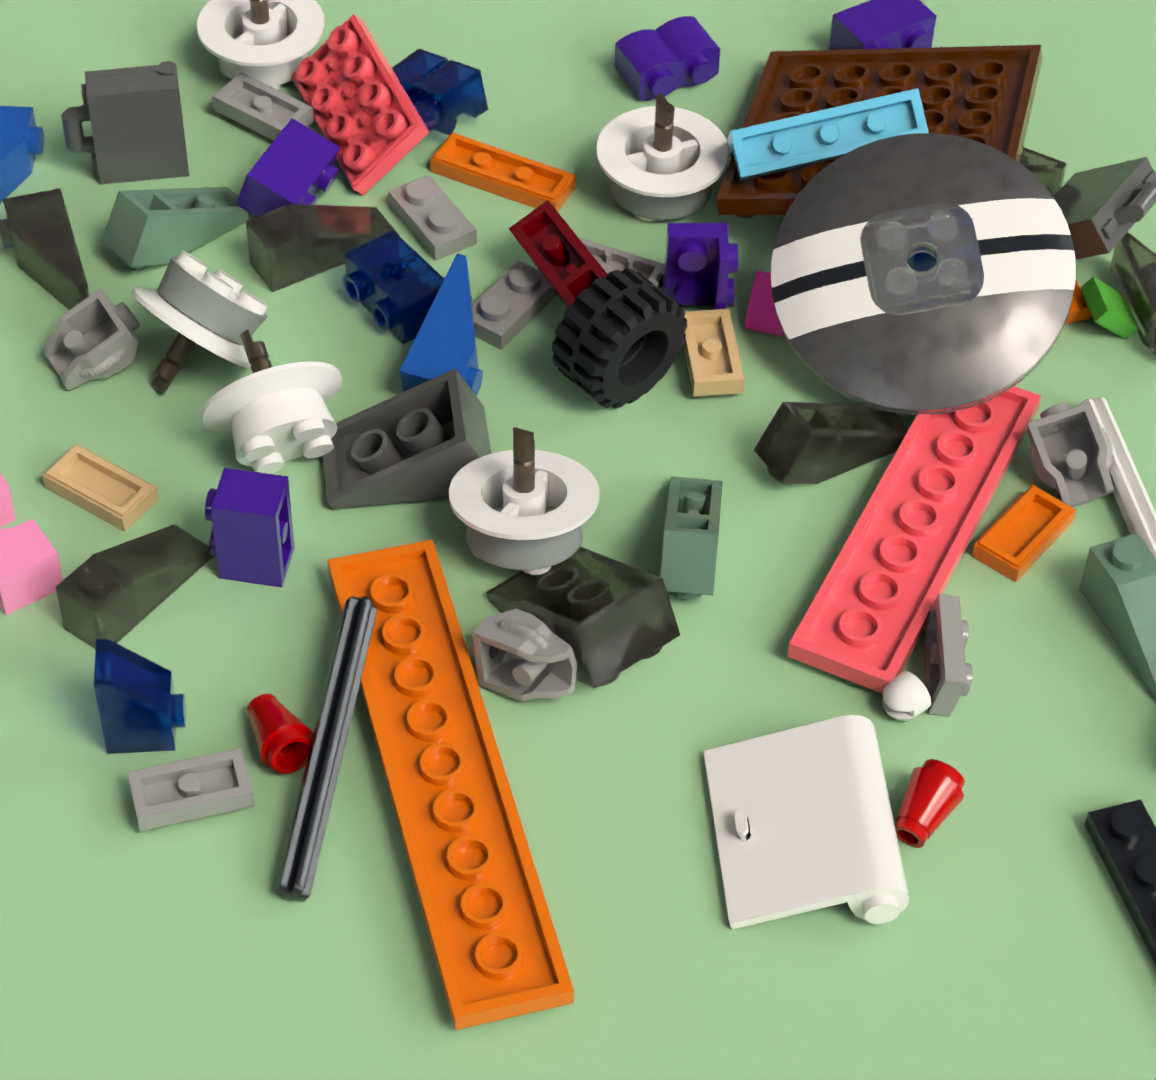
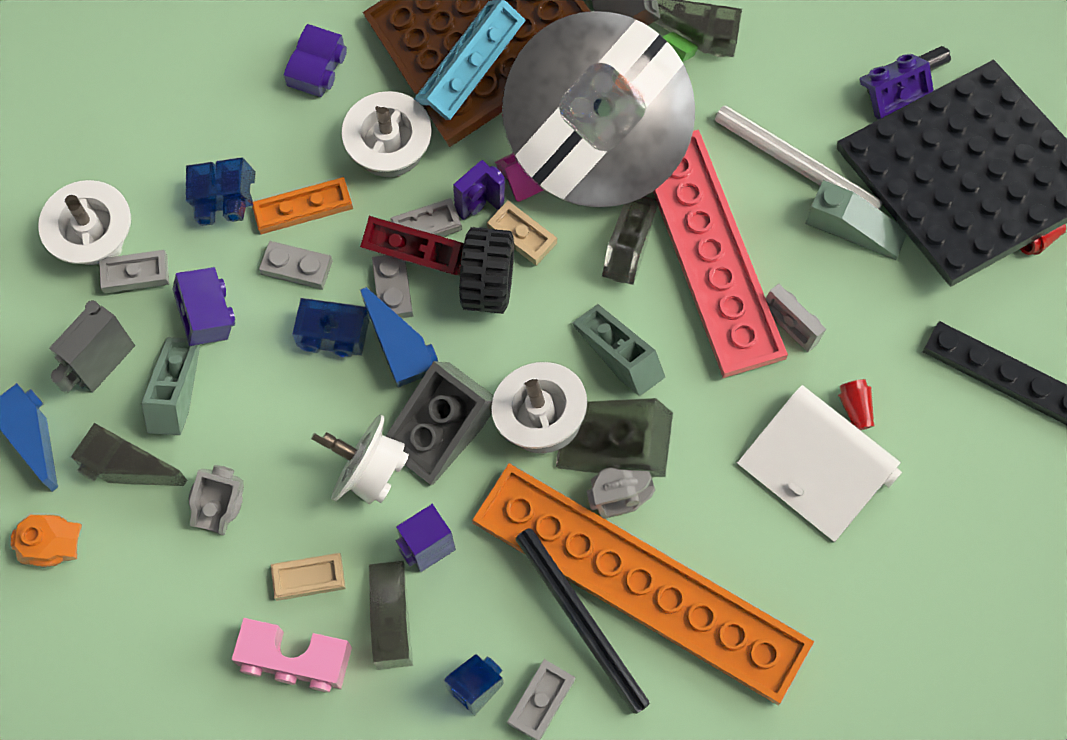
camera: 40 degrees left, 20 degrees up
(203, 311) = (266, 439): piece -> none
(279, 734) = (548, 633): red cone -> none
(308, 240) = (256, 332): clear smoke slope -> none
(359, 104) = (190, 228): coral tile -> none
(905, 697) = (797, 355): white hinge -> none
(1023, 533) = (757, 214): orange tile -> none
(1072, 453) = (743, 153): light grey hand -> none

